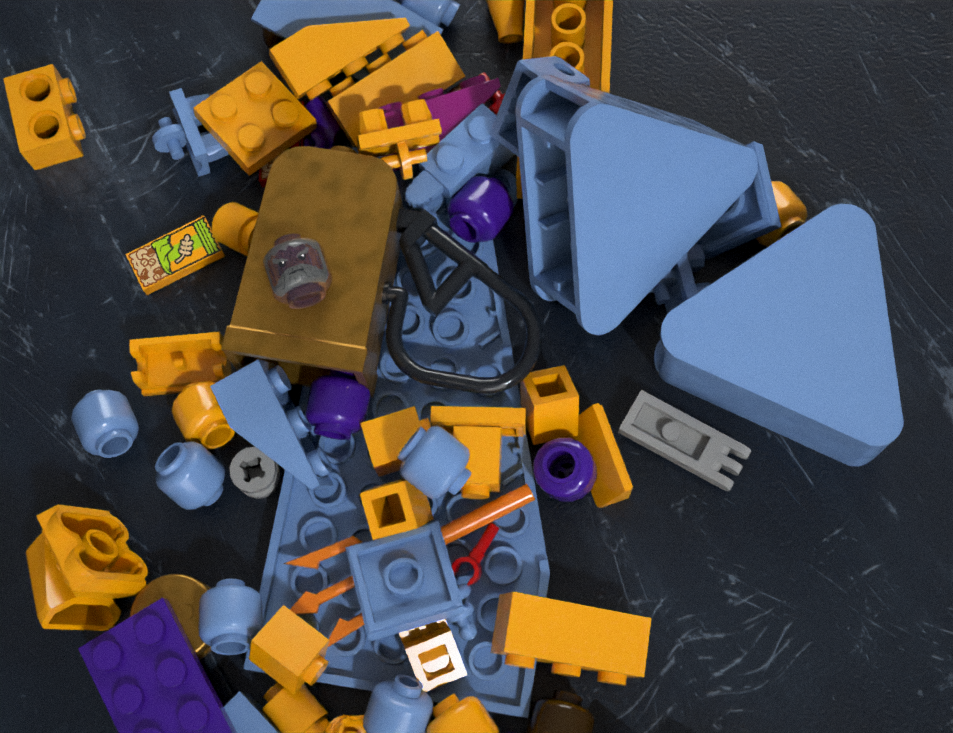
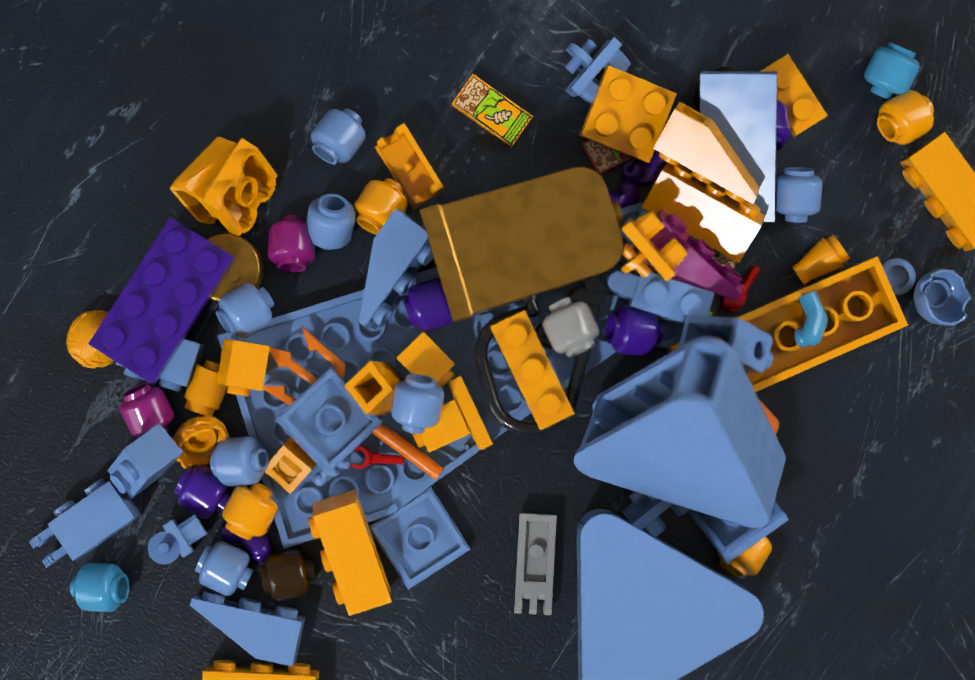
camera: 50 degrees right, 15 degrees up
(190, 532) = (290, 244): none -> magenta head
(234, 226) = (533, 154): light orange brick -> none
(263, 479) = (359, 266): light grey wheel -> none
(297, 271) = (501, 237): head -> none
(438, 253) = (570, 327): none -> light grey head
(464, 322) = (532, 370): none -> light orange plate
(550, 404) = (510, 457): light orange brick -> none
(551, 462) = (457, 482): dark purple head -> none
(561, 20) = (815, 323): none -> dark azure arm
(594, 556) = (419, 538): none -> medium blue tile
(612, 477) = (493, 508): light orange slope -> none

